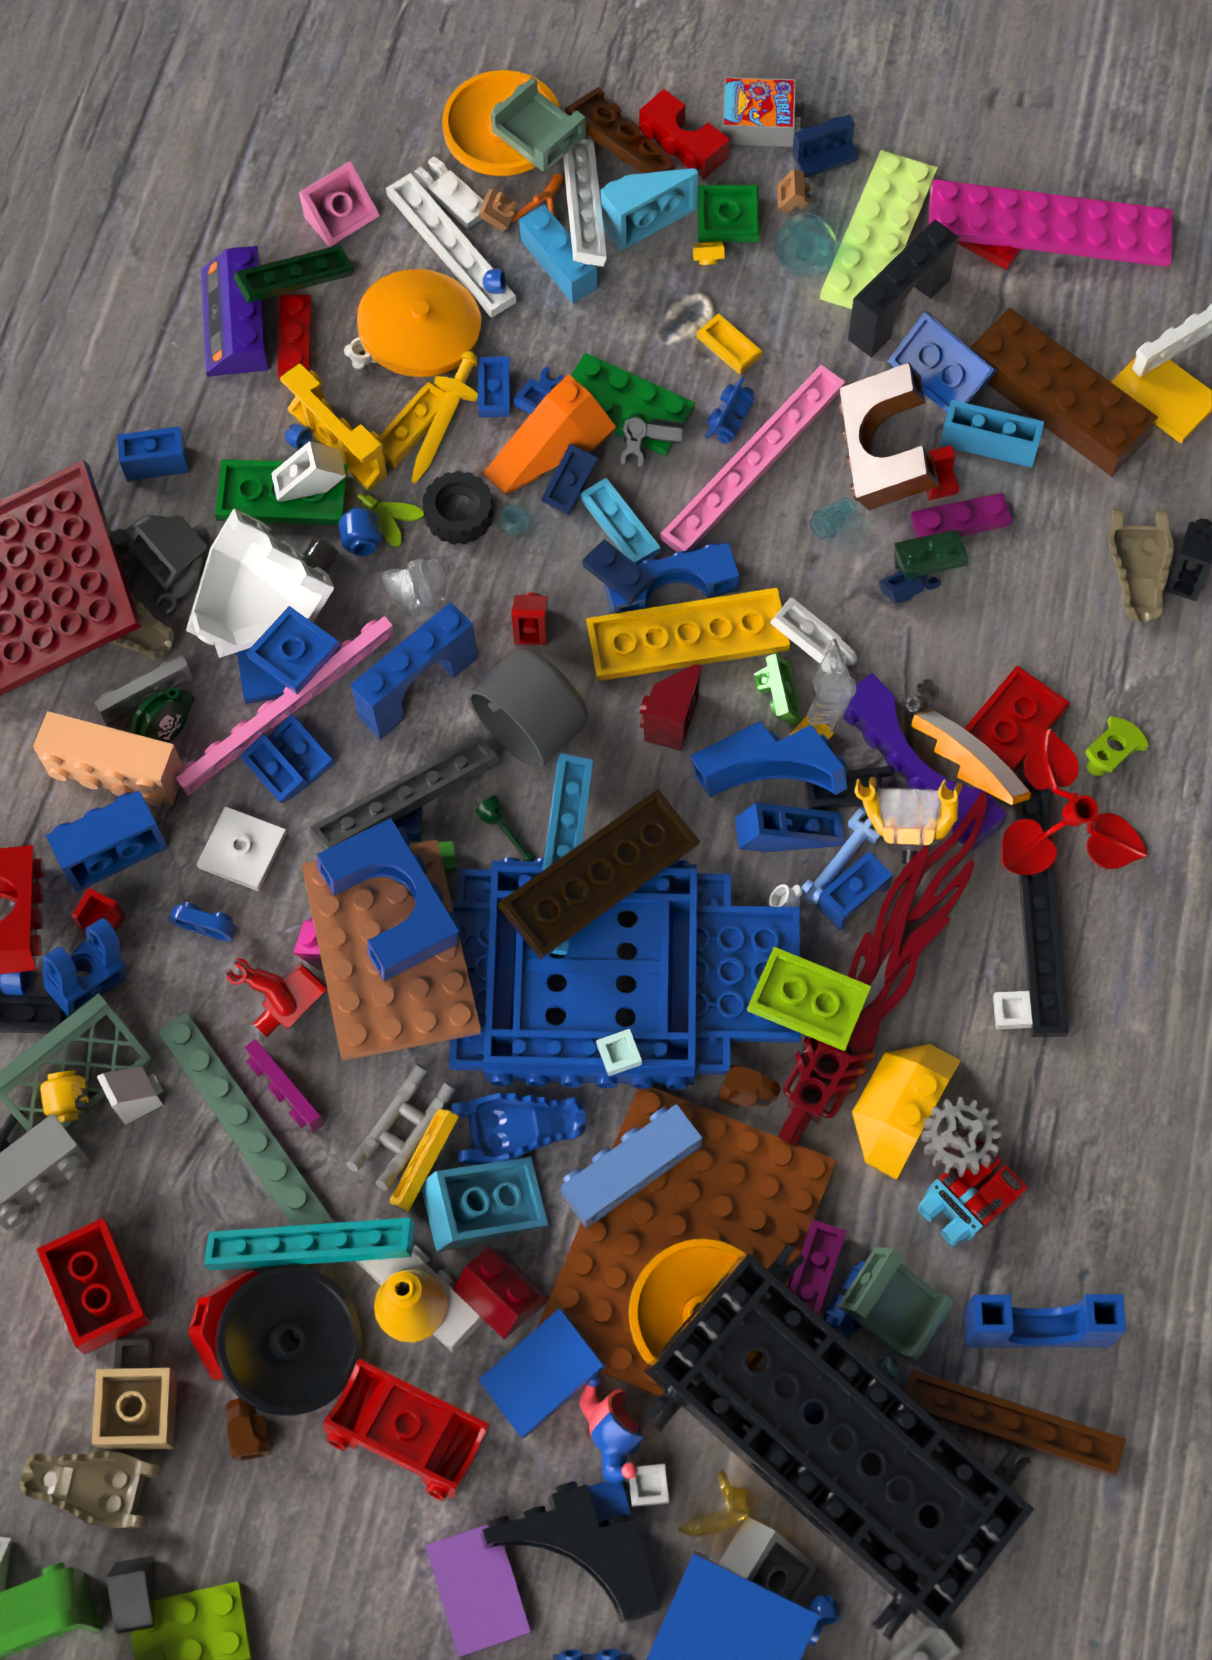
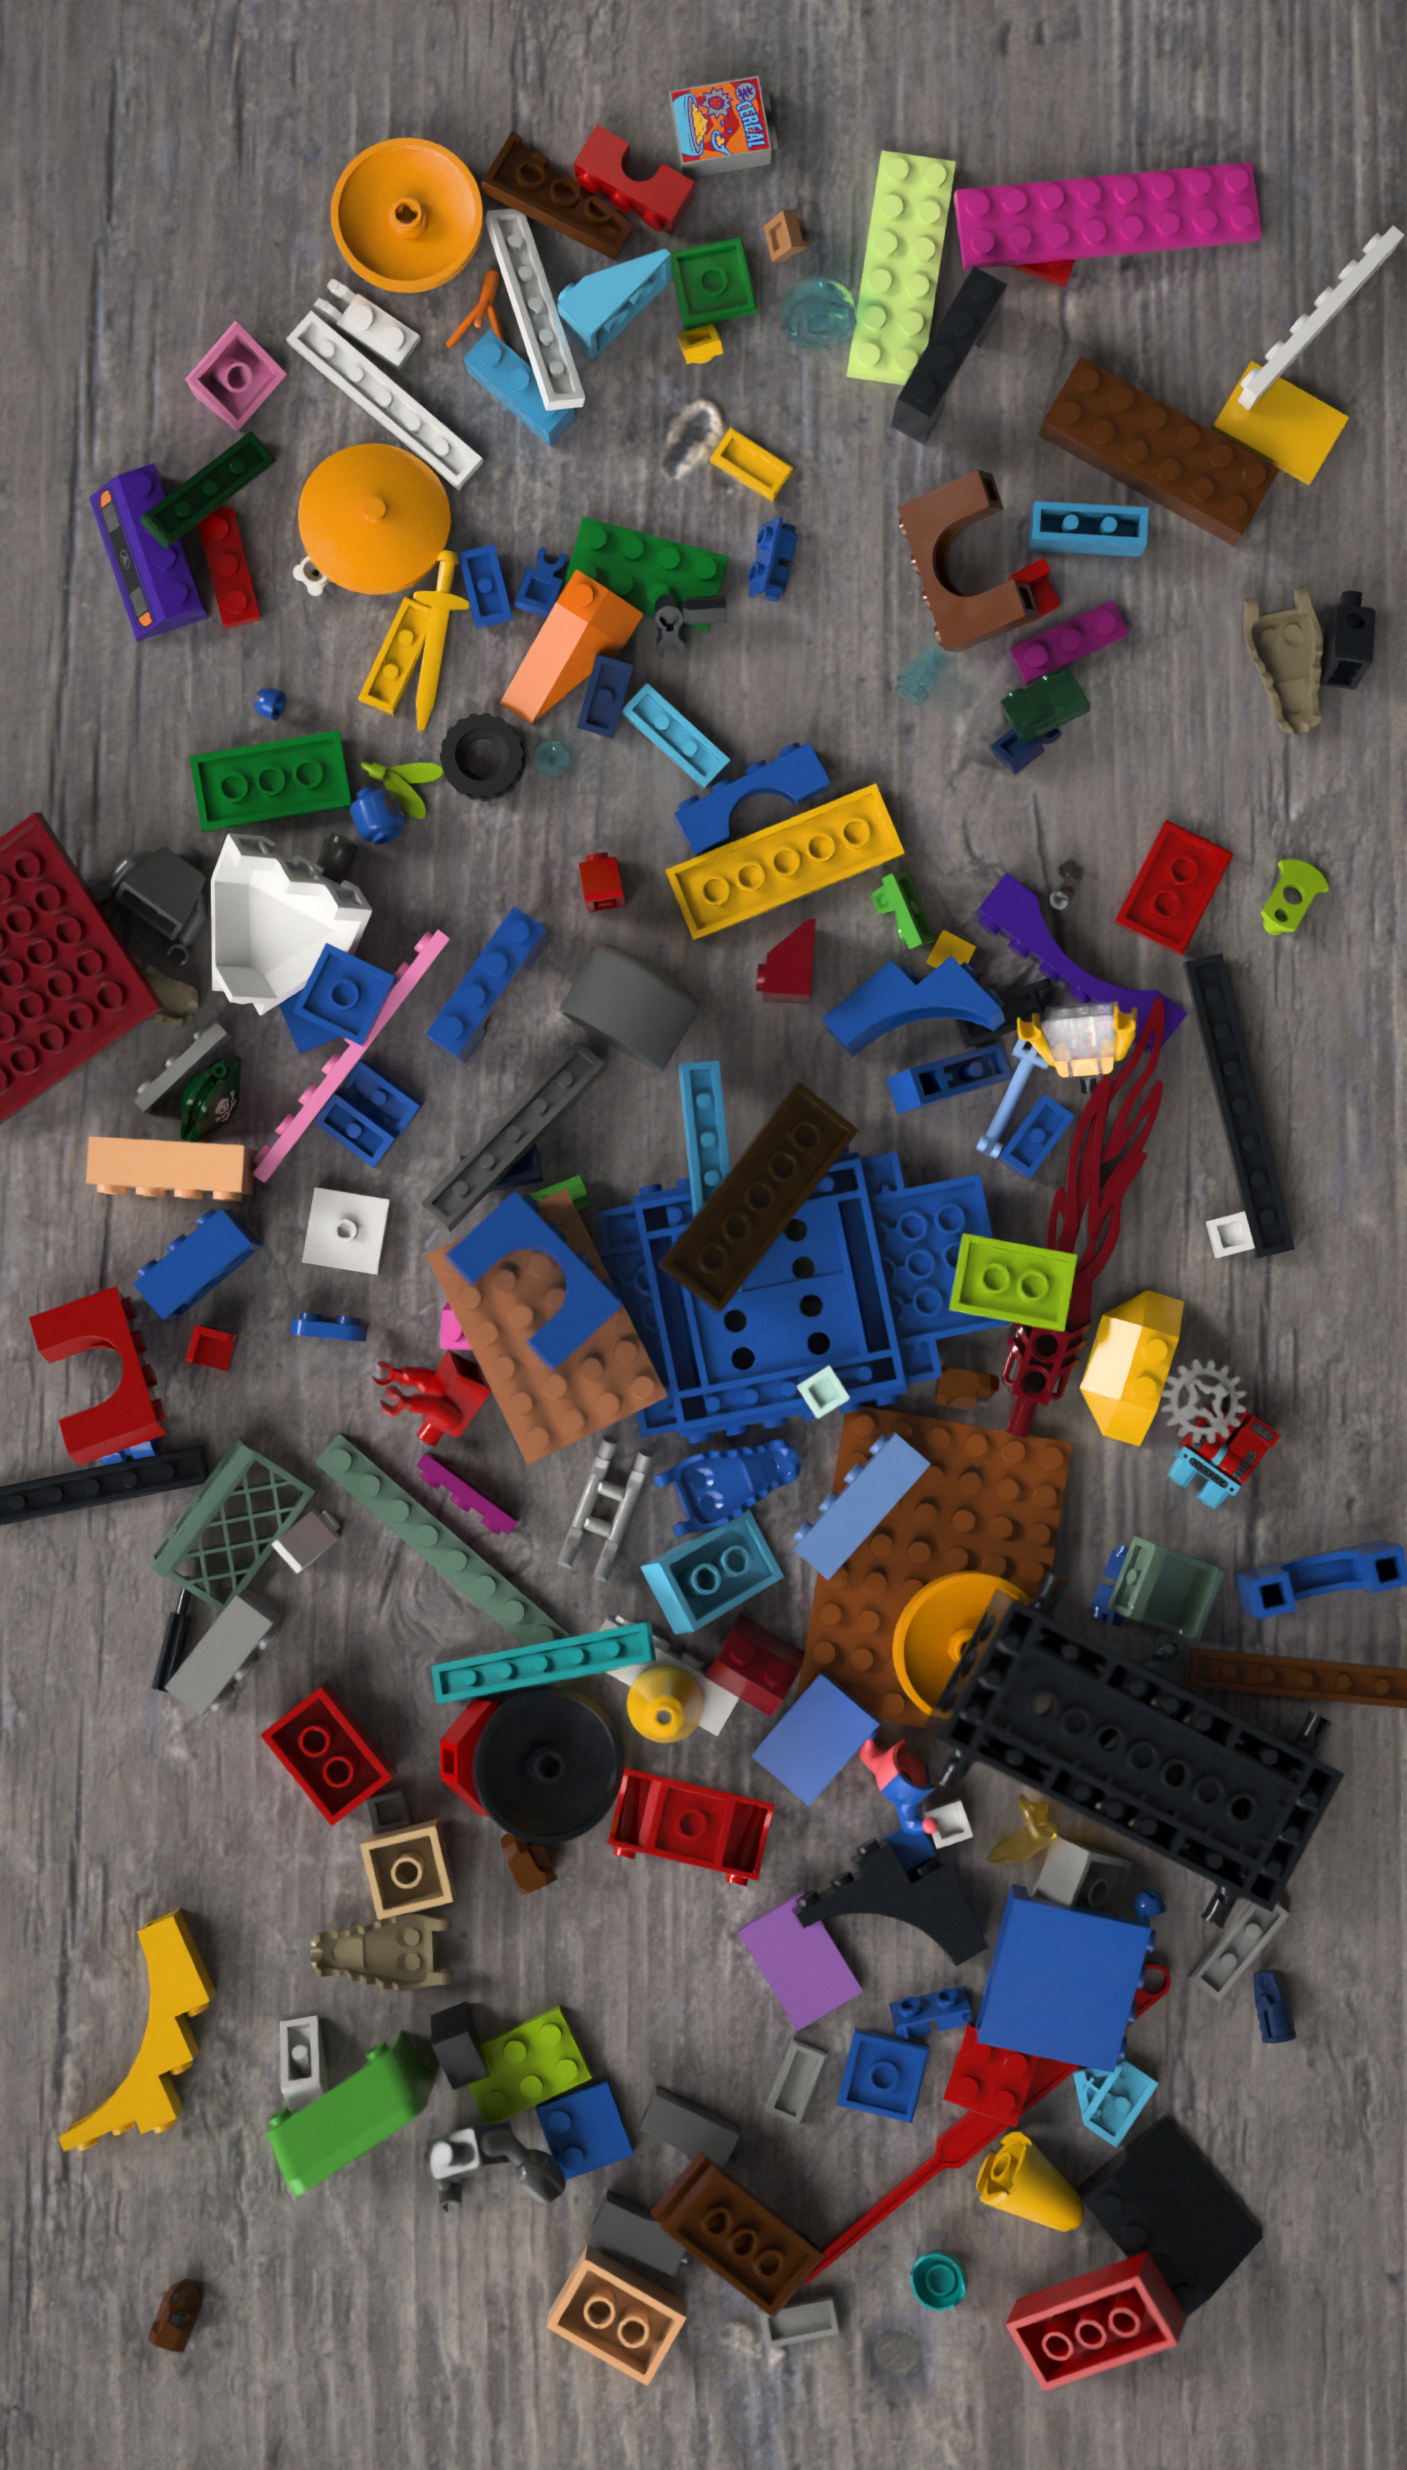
camera: 10 degrees left, 20 degrees up
(64, 1095) = (238, 1560): yellow head -> none
(97, 956) = (226, 1395): blue brick -> none
(153, 453) = (106, 766): blue panel -> none
(308, 472) = (299, 758): white slope -> none
(358, 447) = (353, 717): yellow piece -> none
(418, 588) = (463, 876): clear piece -> none
(423, 1159) = (638, 1542): yellow tile -> none
(492, 812) = (616, 1129): dark green hinge -> none
(495, 281) = (454, 448): blue hinge -> none
(497, 209) = (431, 339): medium nougat tile -> none
(536, 126) = (454, 219): sand green panel -> none
(617, 571) = (690, 810): dark blue plate -> none
(752, 460) = (814, 619): bright pink plate -> none
(785, 896) = (960, 1161): white plate -> none
(809, 632) = (929, 838): white hinge -> none
(820, 1256) = (1074, 1564): magenta plate -> none
(825, 146) = (814, 164): dark blue bracket -> none
(833, 689) = (968, 903): clear hinge -> none
(944, 361) = (1013, 446): tile -> none
(976, 760) = (1144, 955): slope -> none
(1030, 851) = (1302, 1010): red plant -> none

